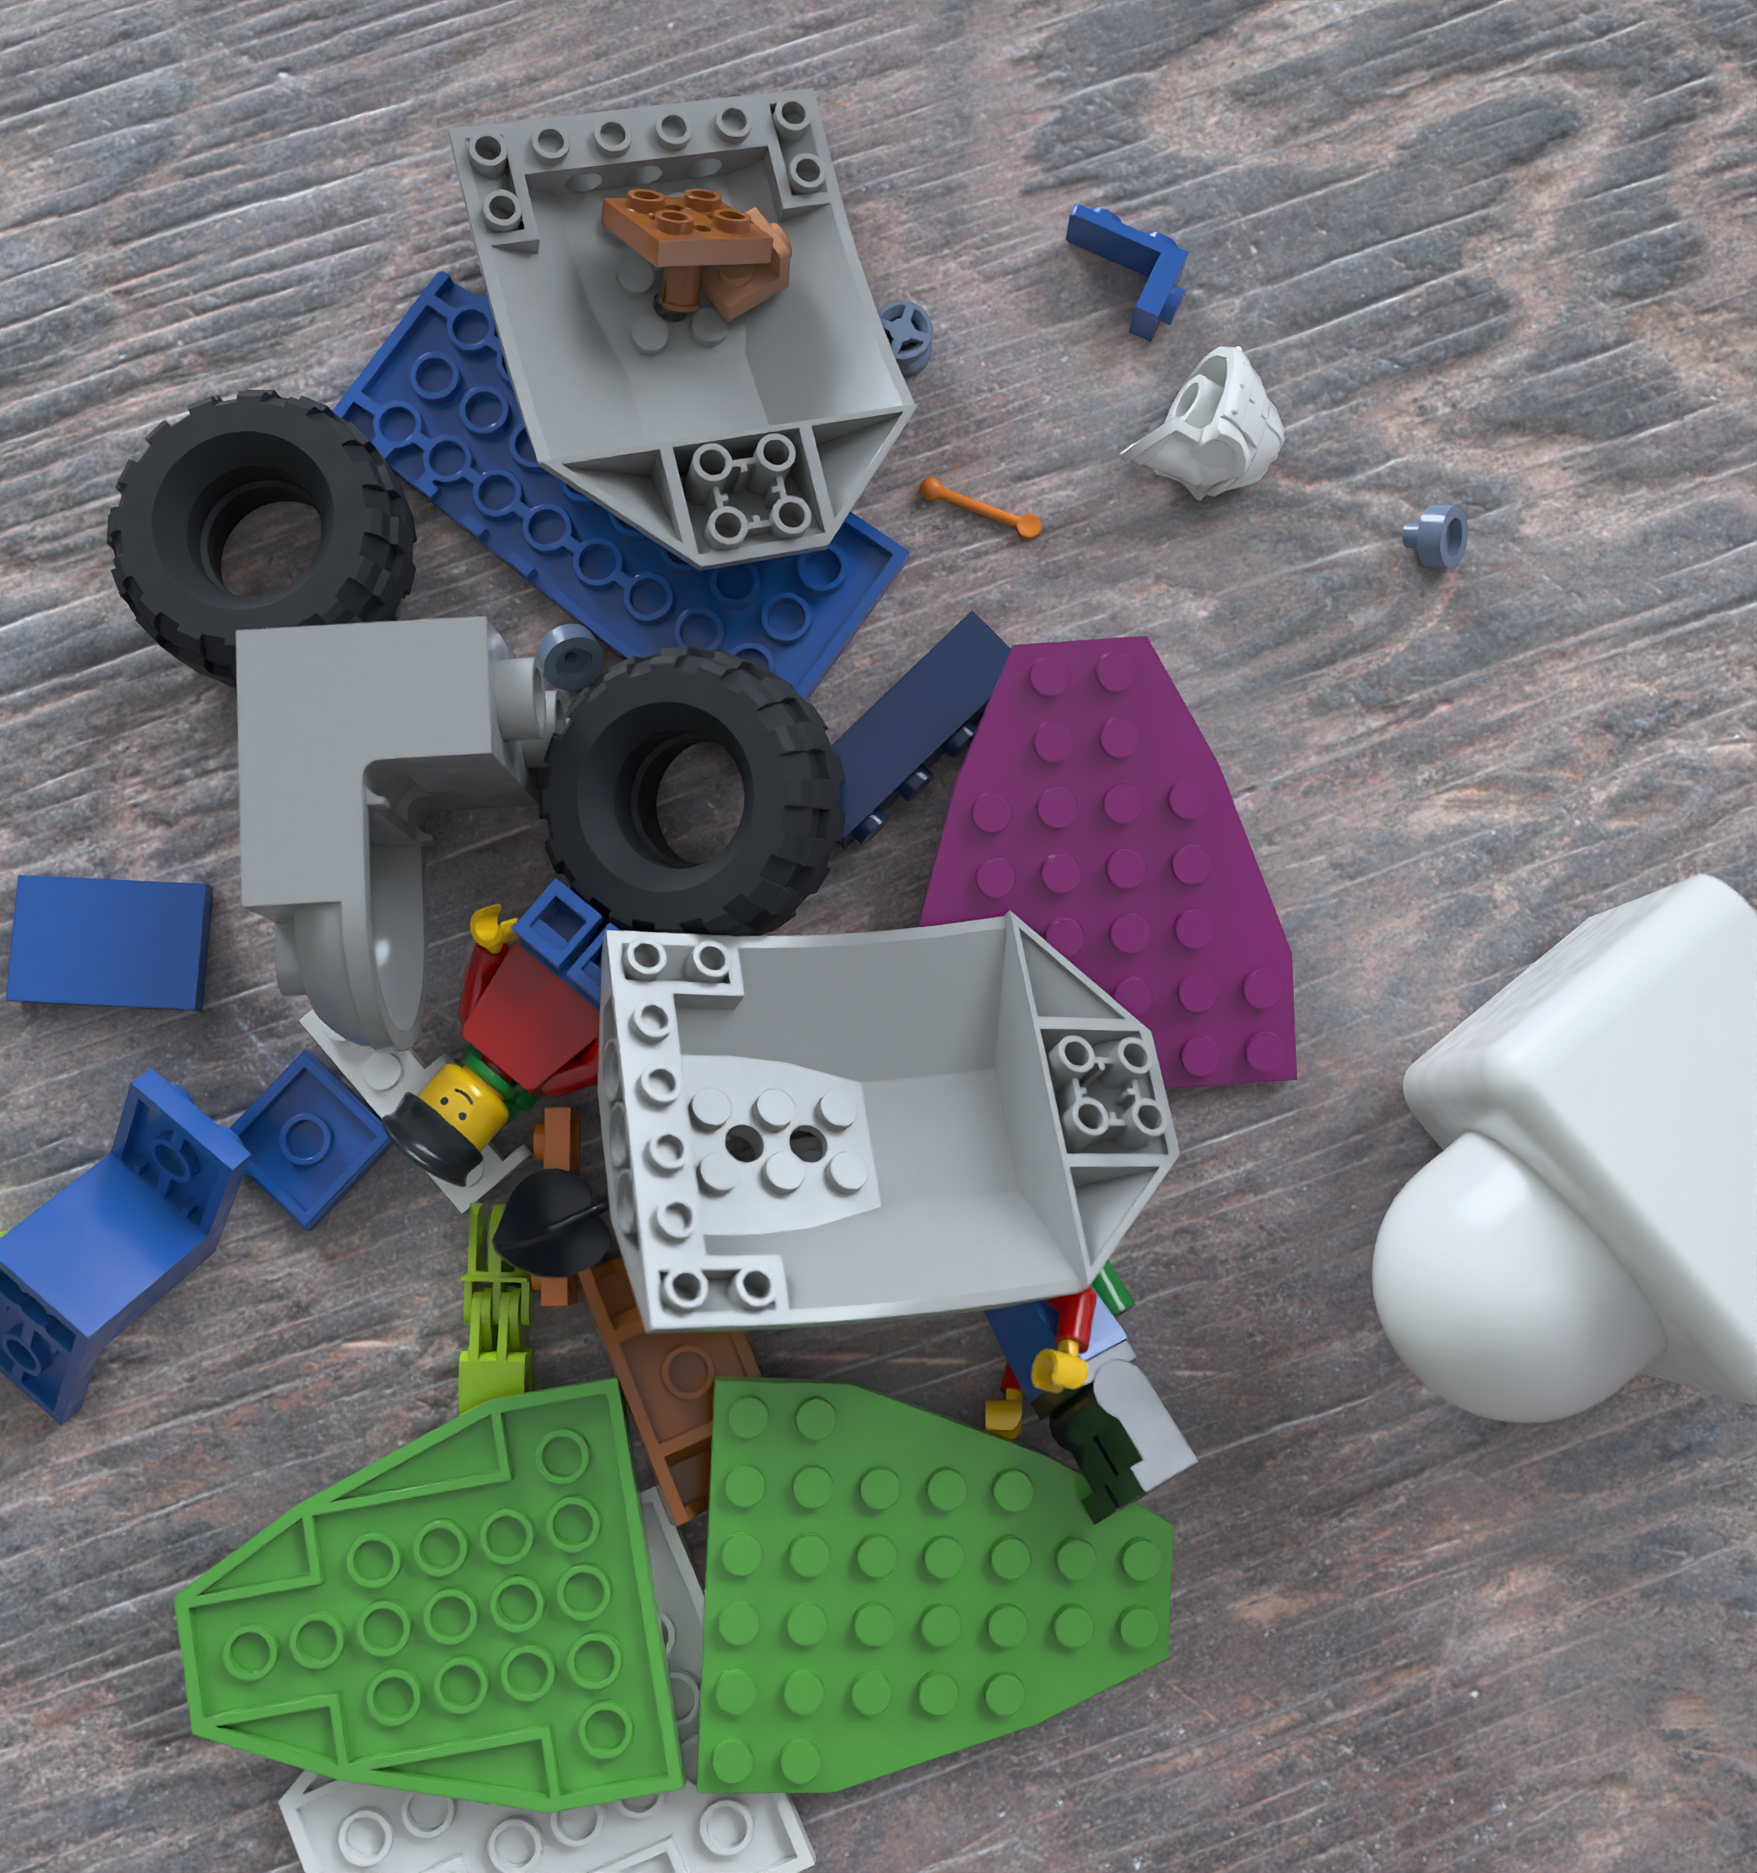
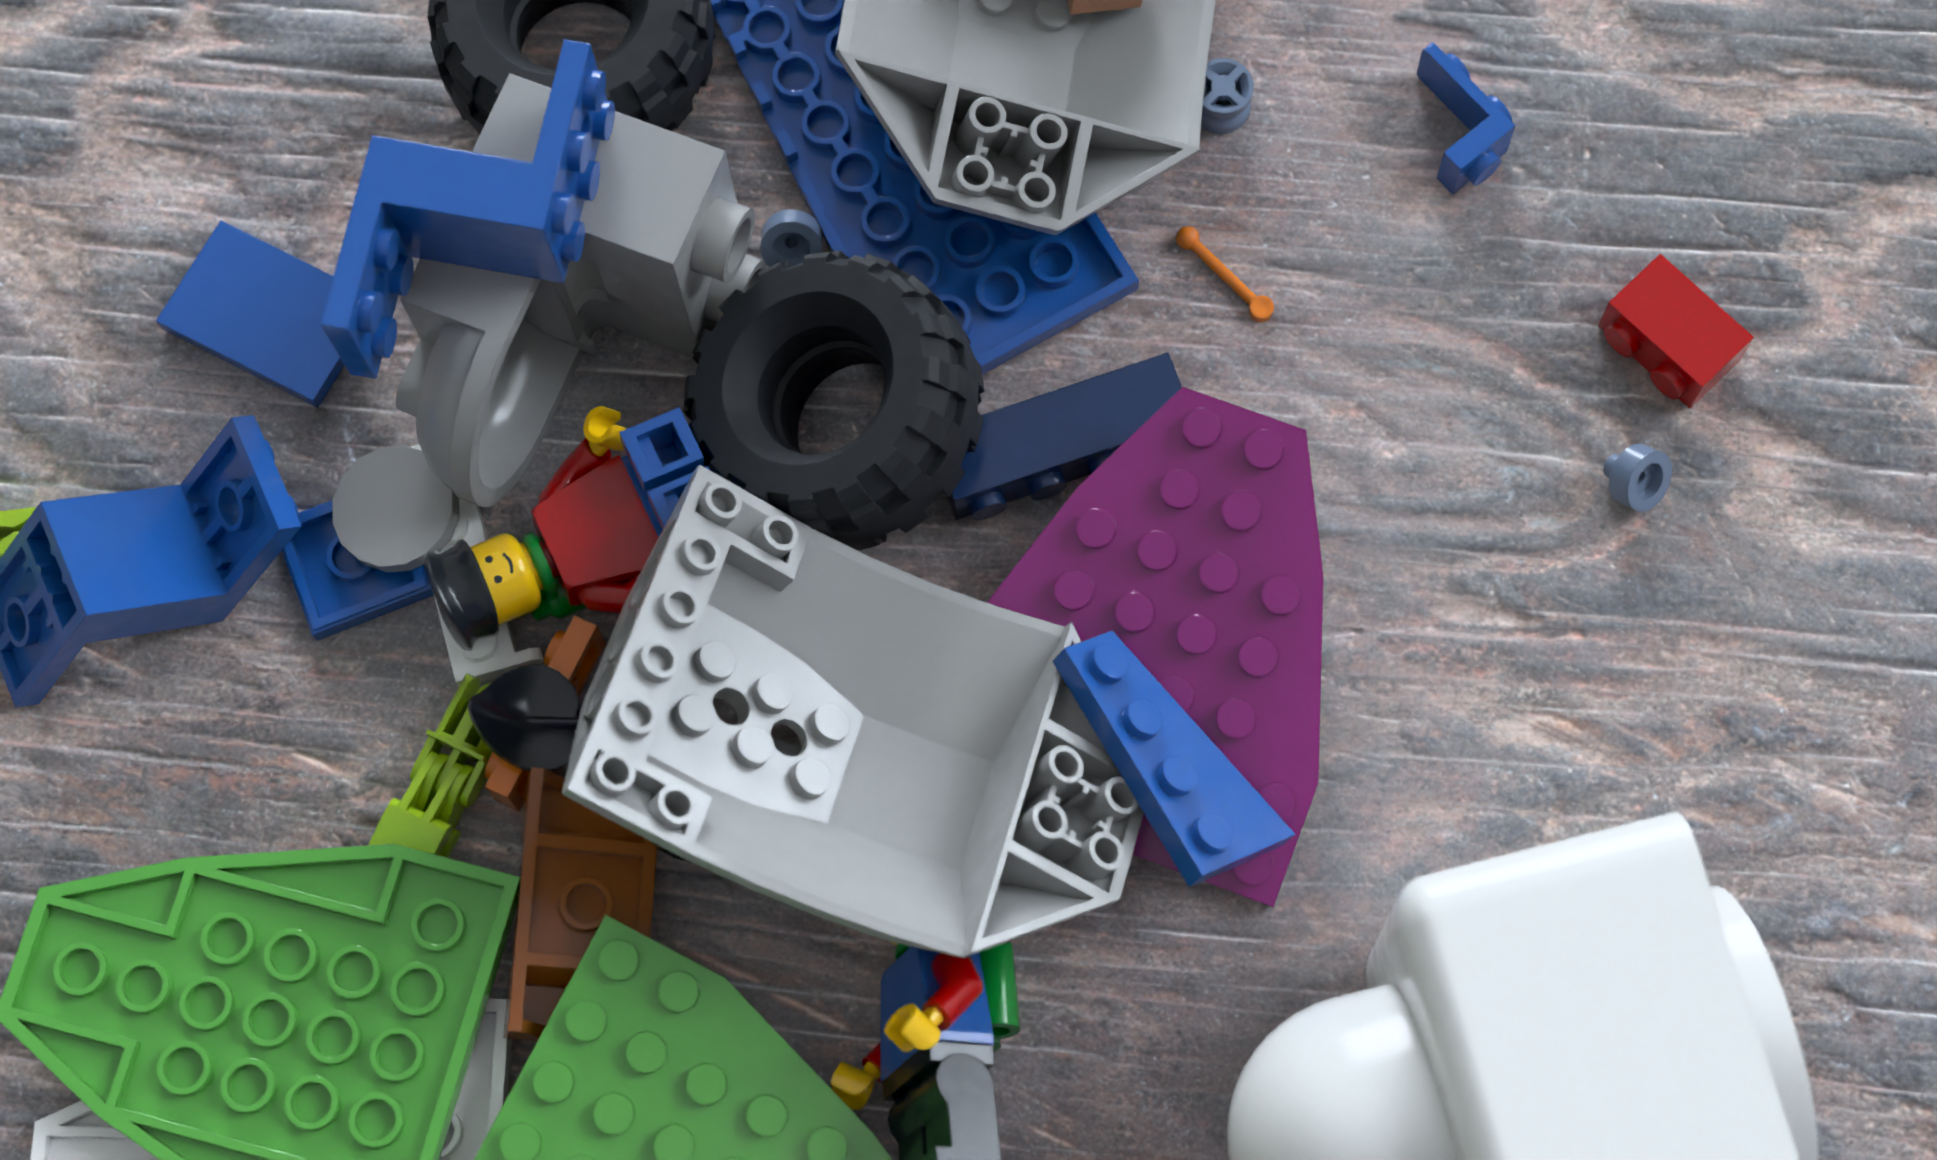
camera: 25 degrees right, 10 degrees down
(266, 799) = (467, 212): none -> blue bracket
(323, 1084) = (393, 509): none -> light grey tile
(1170, 1008) = (1175, 772): none -> wing
(1217, 429) = (1472, 295): white head -> none
(1412, 386) = (1674, 332): none -> red brick

